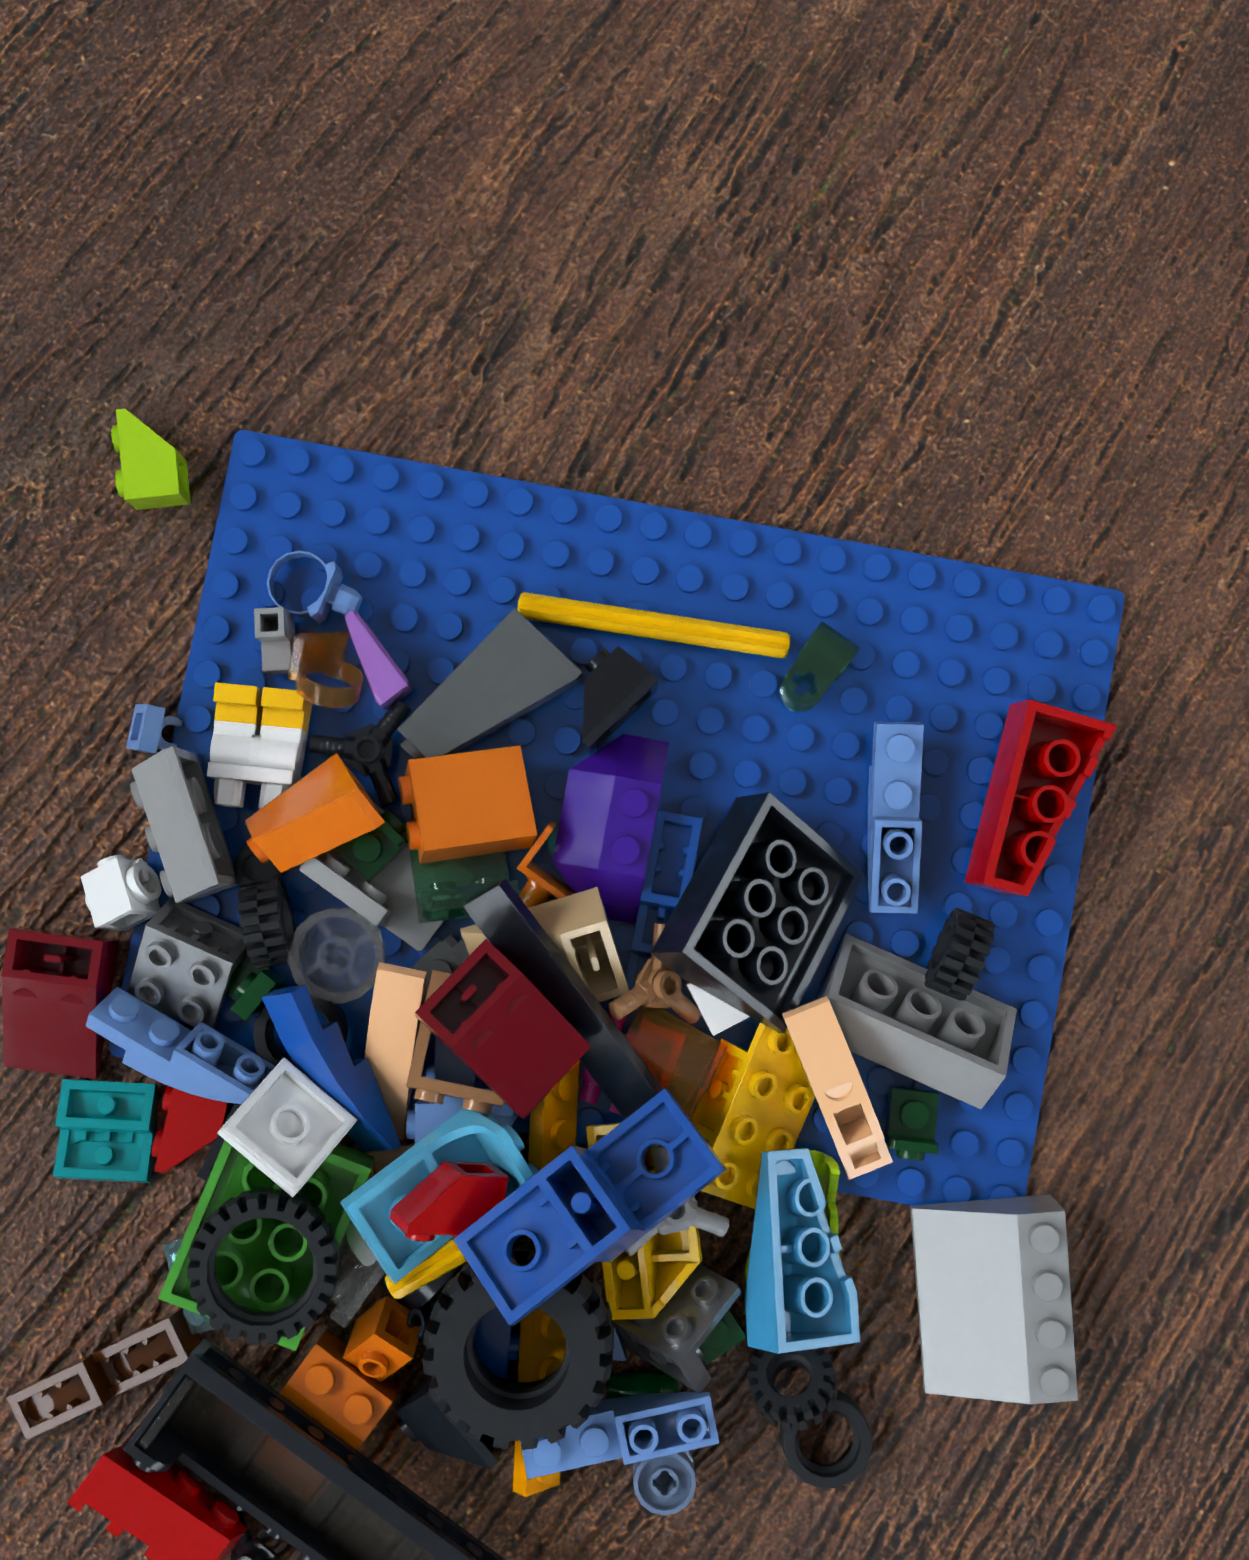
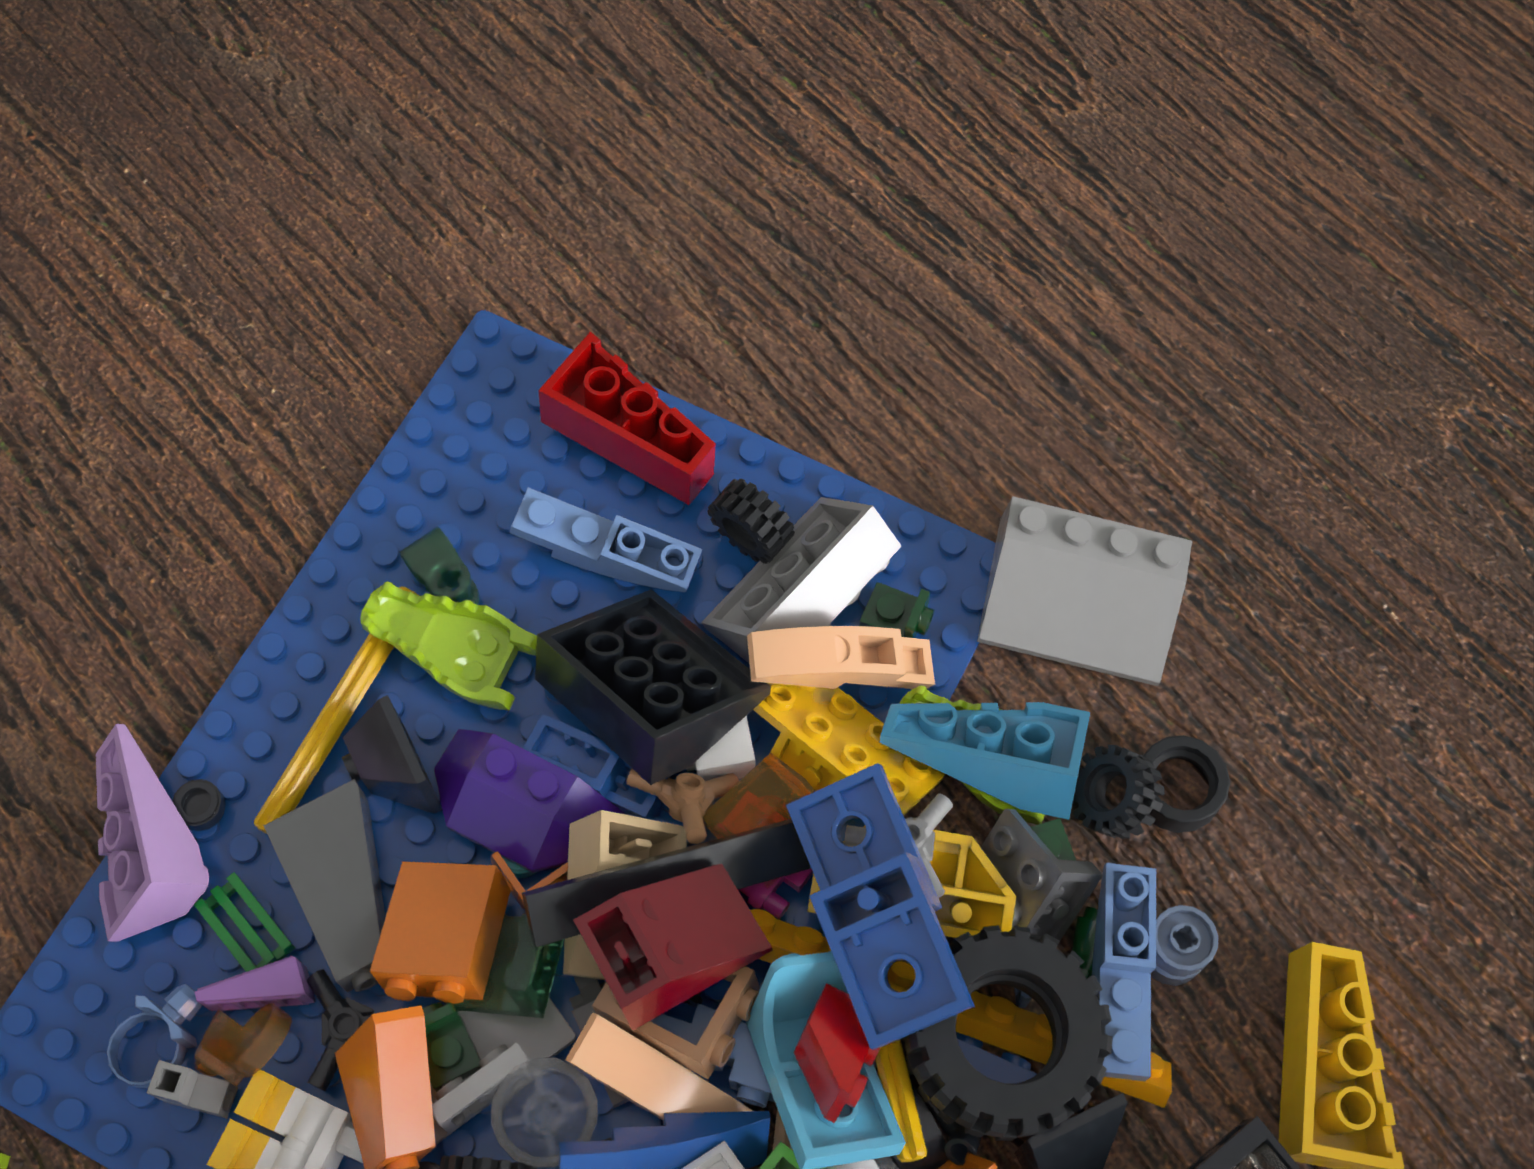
camera: 70 degrees left, 20 degrees down
(450, 588) = (221, 896): none -> green tile
(463, 515) = (149, 848): none -> lavender wedge
(525, 534) = (199, 804): none -> black tile
(745, 709) = (455, 642): none -> lime animal

